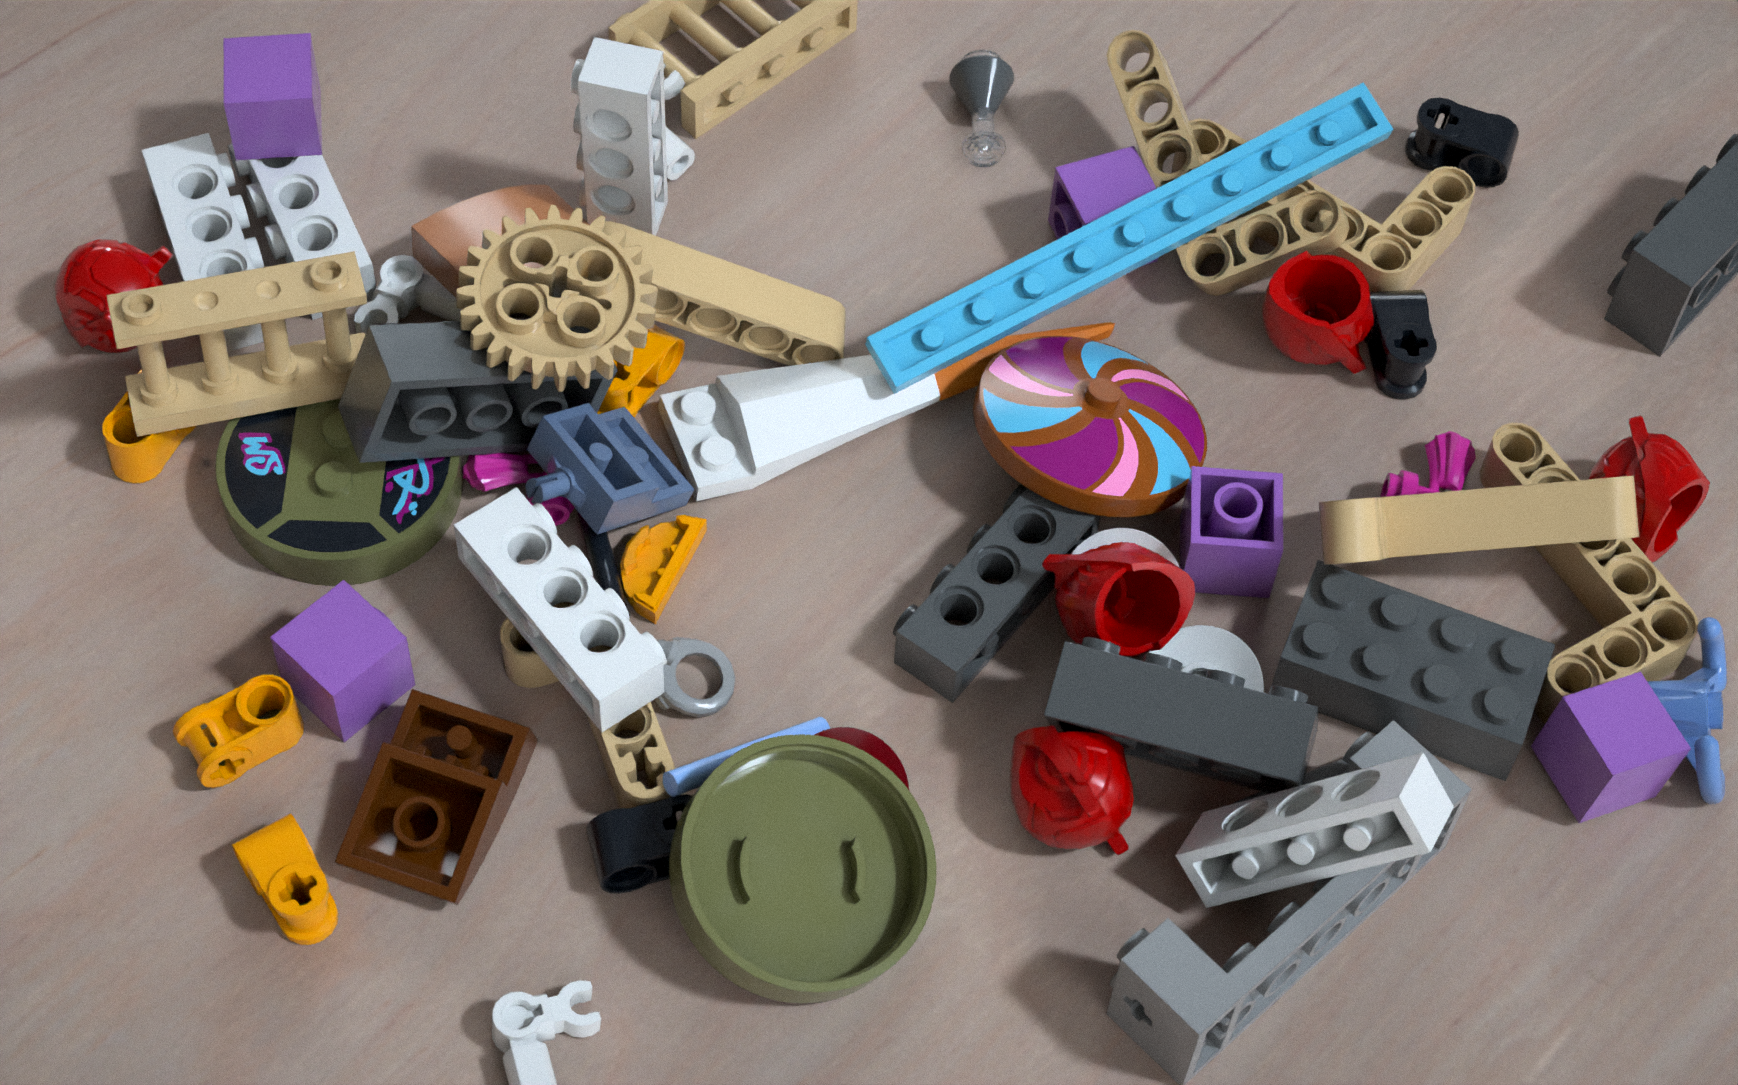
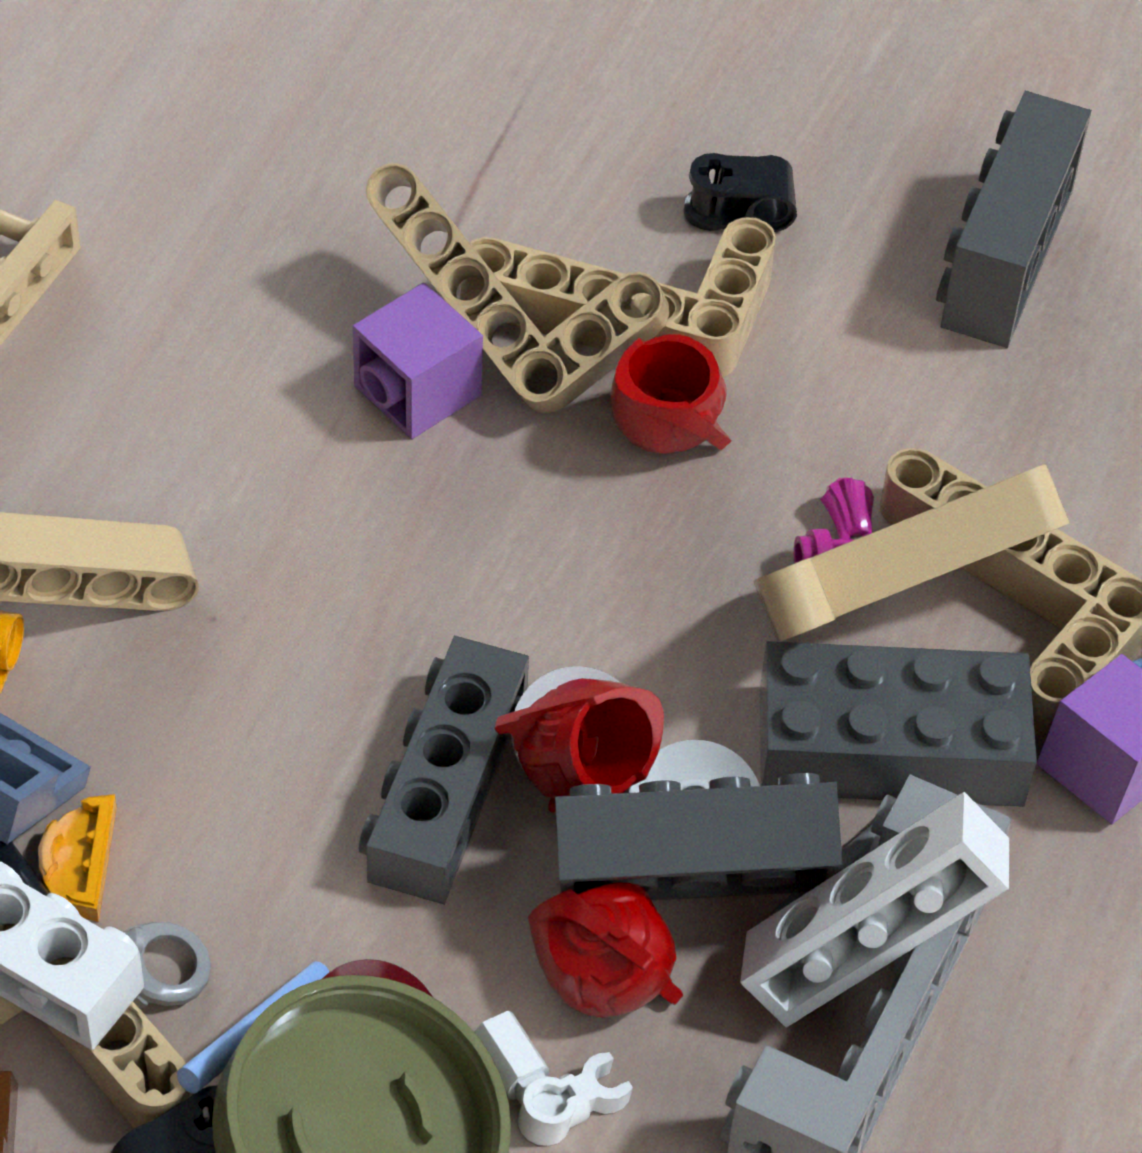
camera: 20 degrees left, 5 degrees down
(781, 417) = (149, 669): white plate -> none
(972, 905) = (547, 1103): none -> white bar
(981, 84) = (237, 267): piece -> none
(1089, 426) = (482, 578): dish -> none
(1127, 238) = (449, 380): medium azure plate -> none
(1232, 531) = (668, 637): medium lavender head -> none
(1400, 342) = (759, 405): black piece -> none
(1666, 484) = (1074, 460): red helmet -> none

